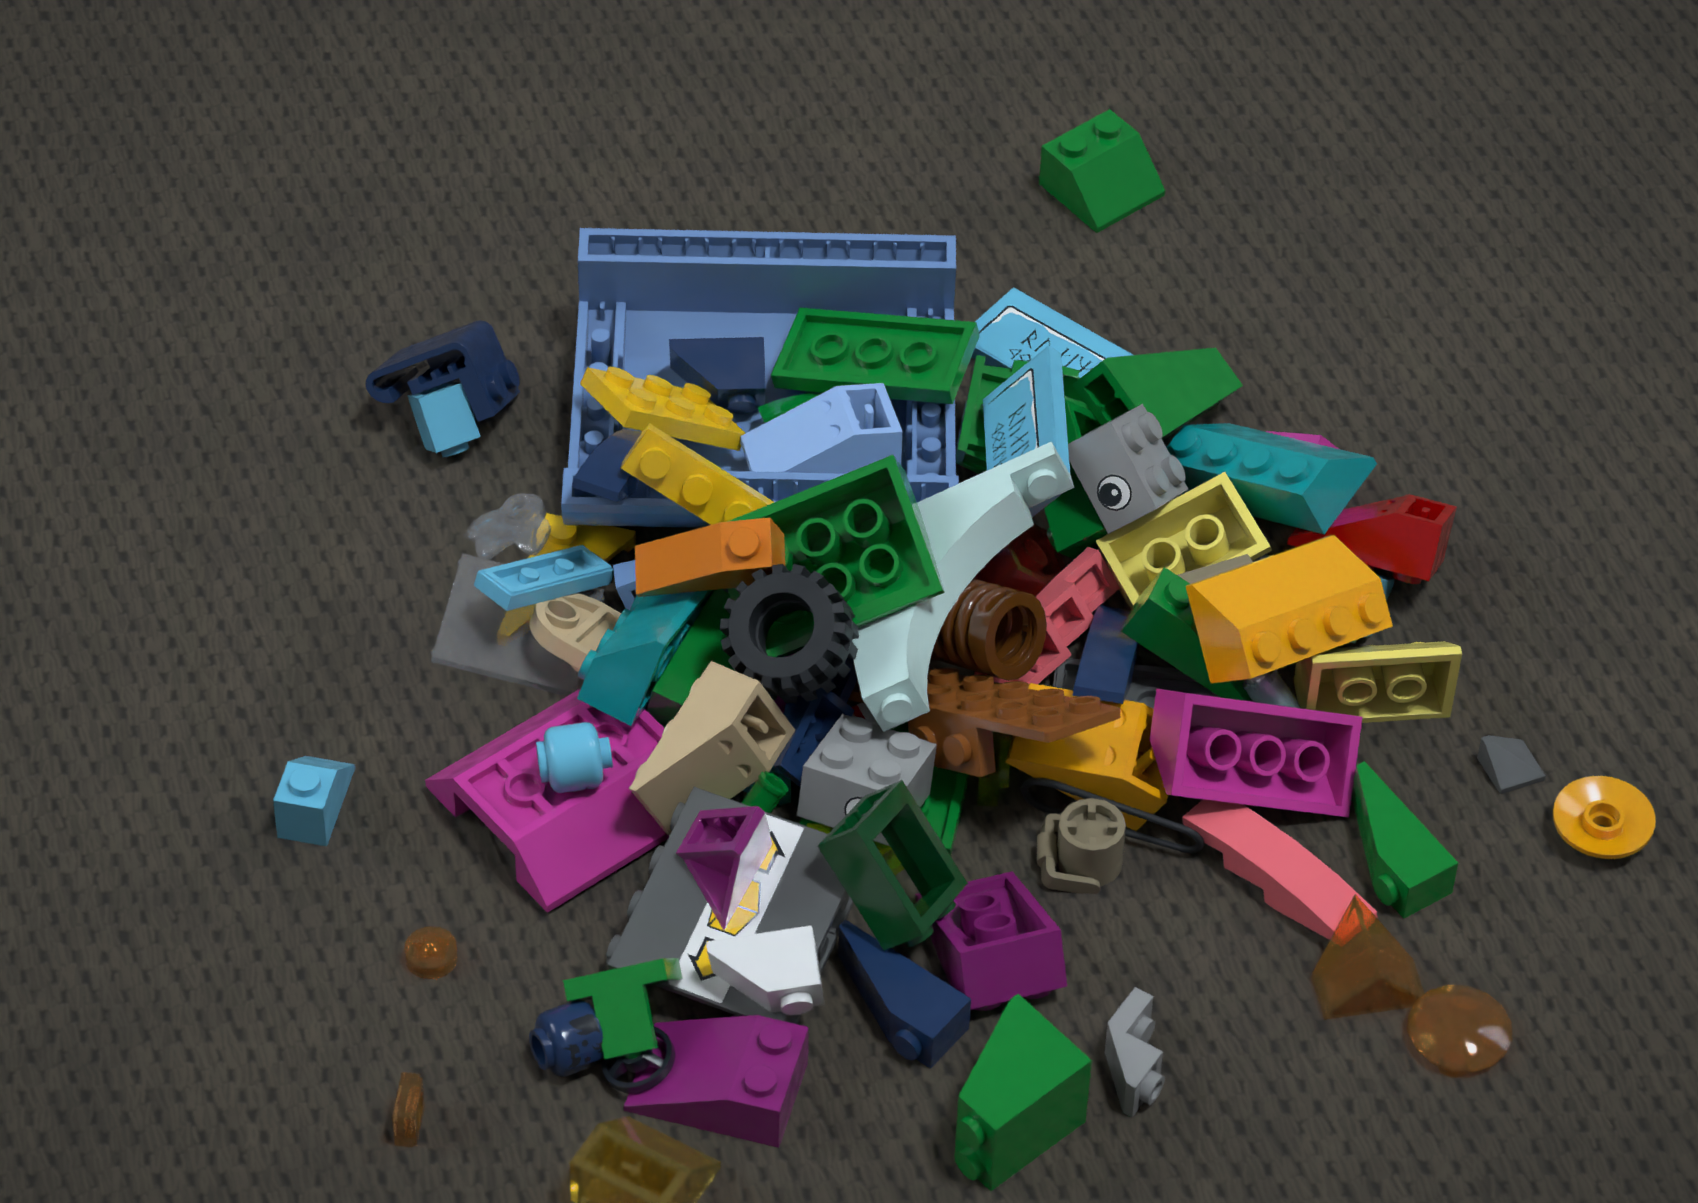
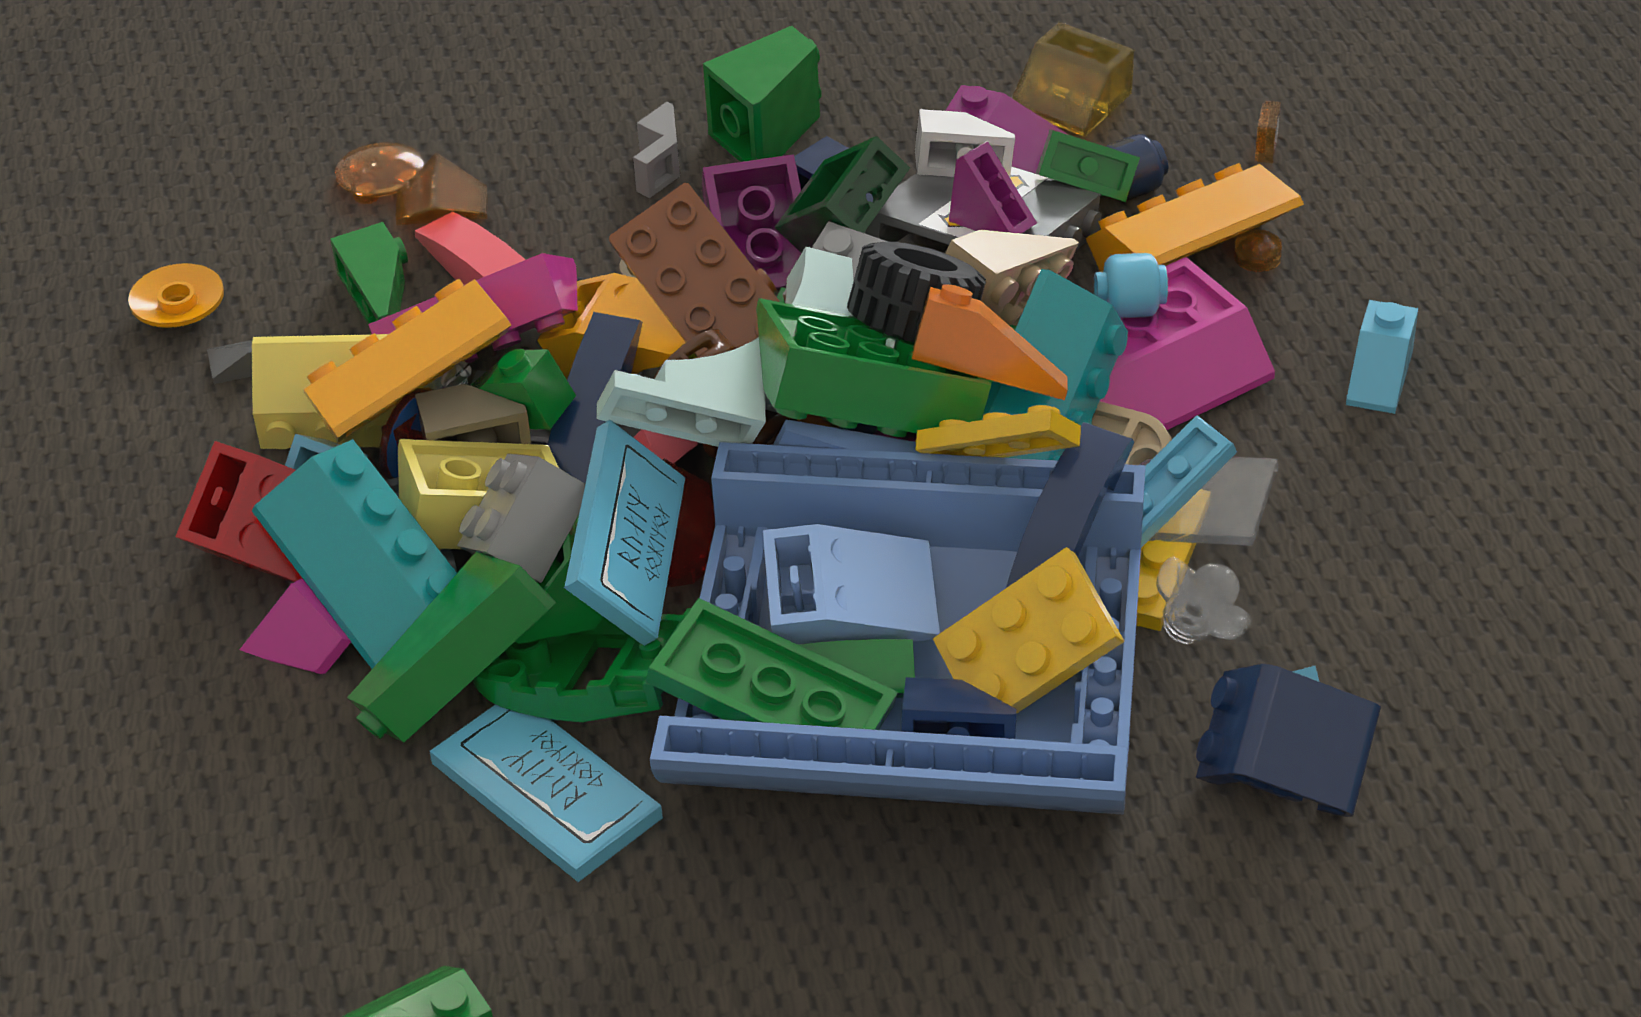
camera: 170 degrees left, 5 degrees down
(501, 915) = (1197, 217): none -> light orange slope

